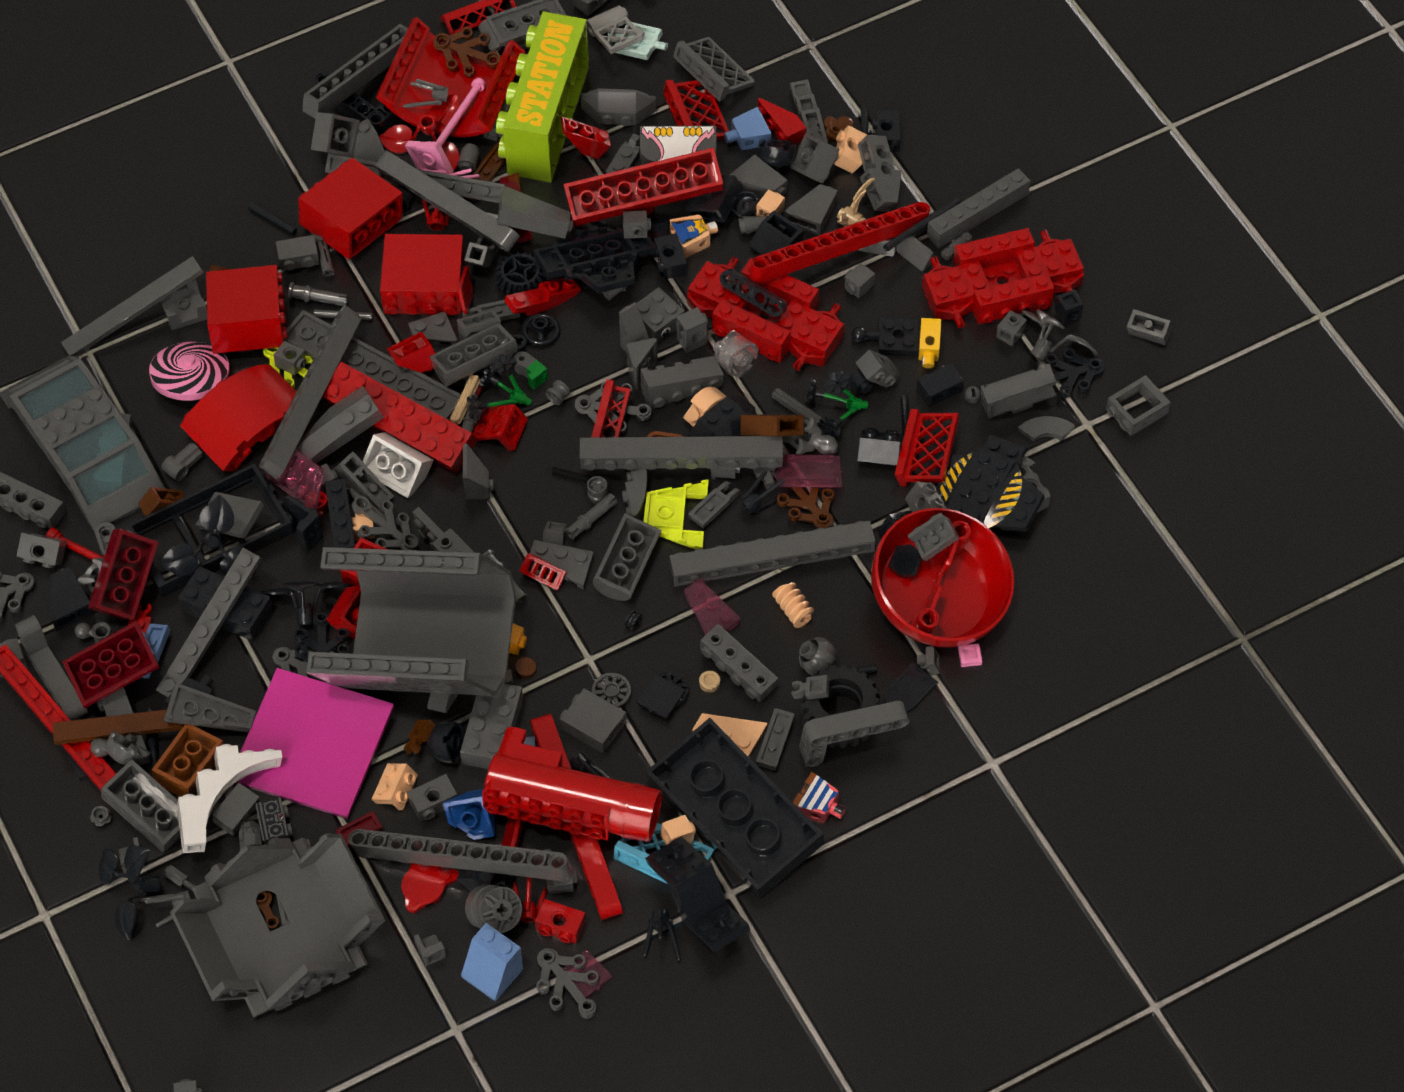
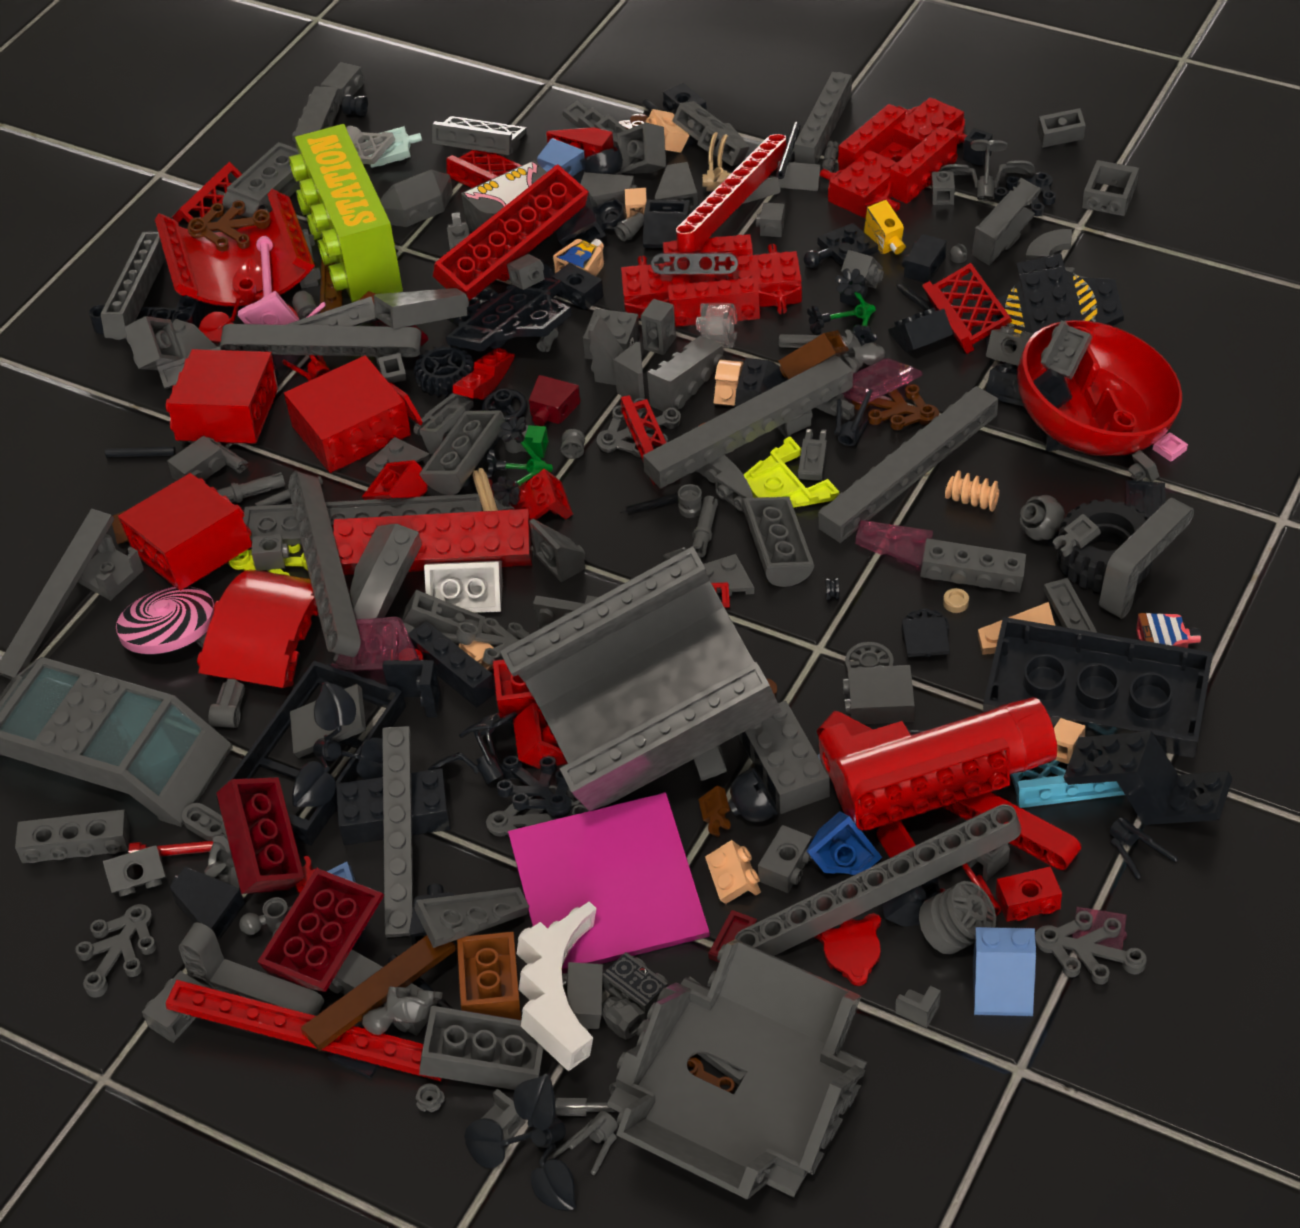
camera: 30 degrees left, 10 degrees down
(159, 498) = (231, 752): reddish brown slope -> none
(439, 93) = (236, 262): dark grey plant -> none
(572, 347) = (552, 400): none -> dark red torso
(586, 138) = (415, 232): red slope -> none

